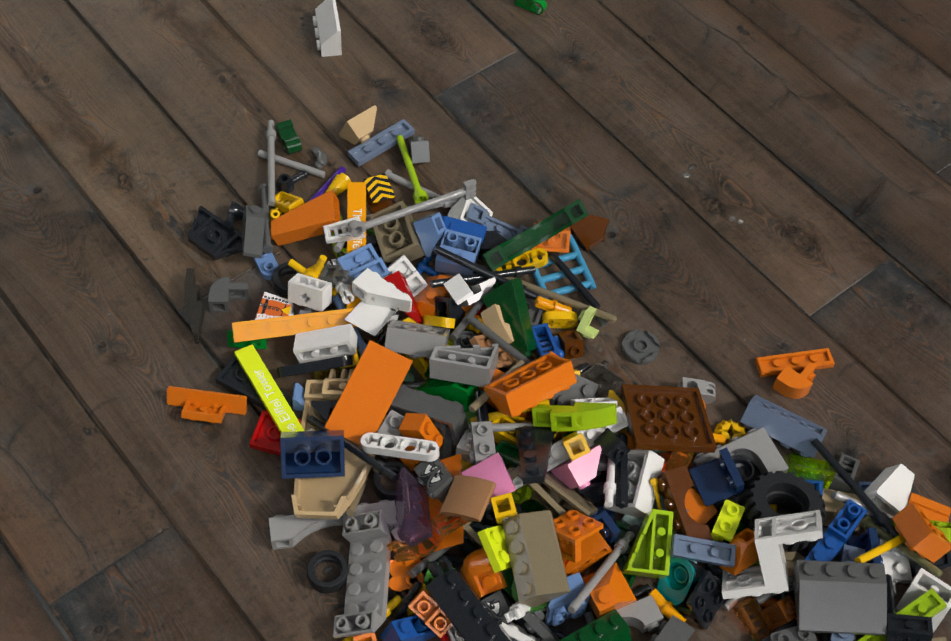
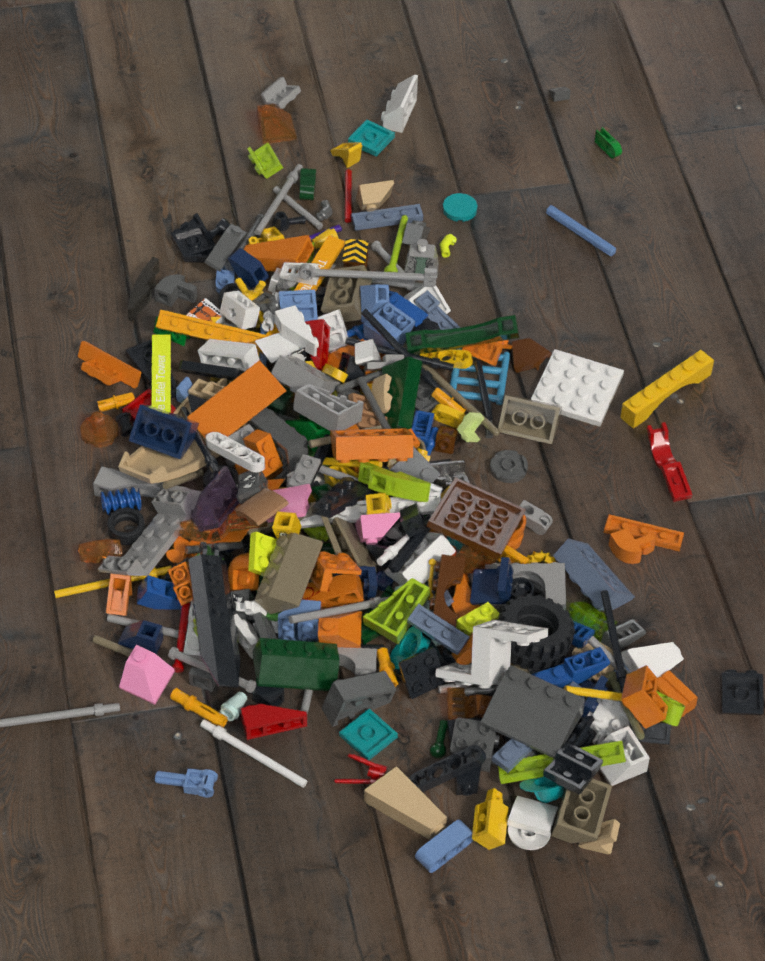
camera: 30 degrees right, 5 degrees down
(209, 57) = (280, 93): none -> light grey bracket
(221, 88) = (275, 124): none -> clear orange slope
(235, 127) = (266, 160): none -> lime bracket
(236, 438) = (115, 402): none -> light orange axle
(237, 476) = (99, 429): none -> clear orange tile
(262, 459) = (125, 423): none -> black bush
(288, 244) = (248, 268): none -> dark blue slope
(306, 545) = (120, 500): none -> blue piece
(309, 90) = (348, 152): none -> yellow slope
(317, 610) = (96, 550): none -> clear orange slope
(319, 70) = (373, 137): none -> teal plate
(320, 246) = (276, 282): none -> white tile
(331, 135) = (348, 195): none -> red bar
(439, 108) = (460, 207): none -> teal tile
(440, 173) = (421, 256): none -> light grey torso
(449, 149) = (448, 240): none -> neon yellow arm
(557, 91) = (581, 230): none -> medium blue axle
(631, 292) = (529, 419): none -> dark tan slope
(649, 244) = (579, 386): none -> white plate
(727, 215) = (643, 403): none -> yellow arch
(778, 289) = (671, 469): none -> red piece

